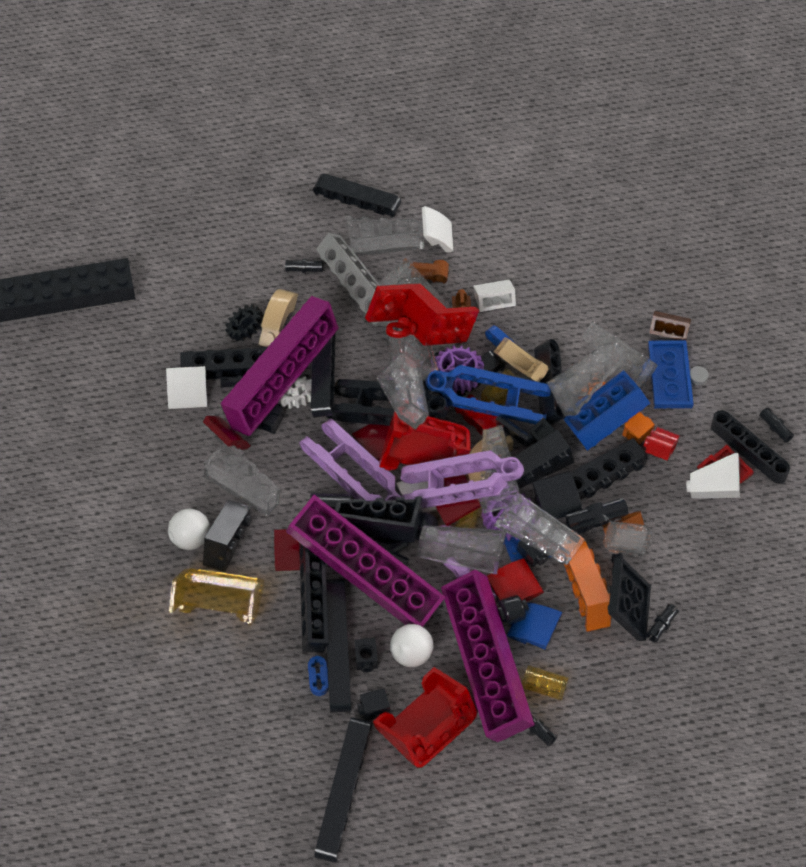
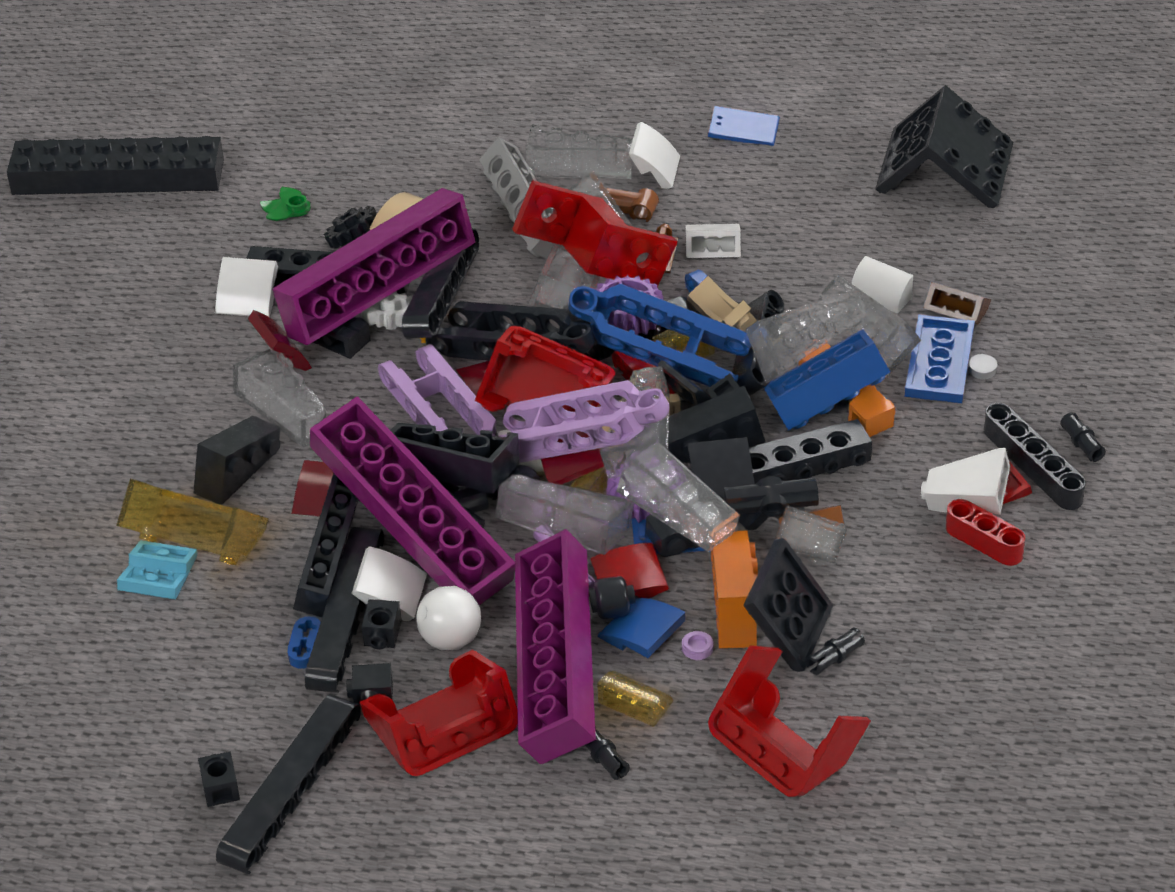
camera: 15 degrees right, 15 degrees down
(186, 307) = (289, 205): none -> green plate
(188, 529) = (178, 439): white piece -> none
(193, 632) = (159, 559): none -> medium azure slope
(300, 803) = (219, 779): none -> black brick
(304, 265) = (458, 178): black pin -> none
(357, 194) = (557, 109): black beam -> none
(362, 620) = (390, 579): none -> white slope
(403, 323) = (565, 247): red piece -> none
(405, 389) = (532, 297): clear wedge -> none
(487, 189) = (743, 126): none -> container
(573, 632) = (697, 645): none -> lavender tile
(618, 319) = (884, 283): none -> white brick
(633, 189) = (955, 140): none -> black bracket
(641, 703) = (749, 729): none -> red windscreen
(661, 443) = (899, 432): red brick -> none
(743, 513) = (985, 532): none -> red beam

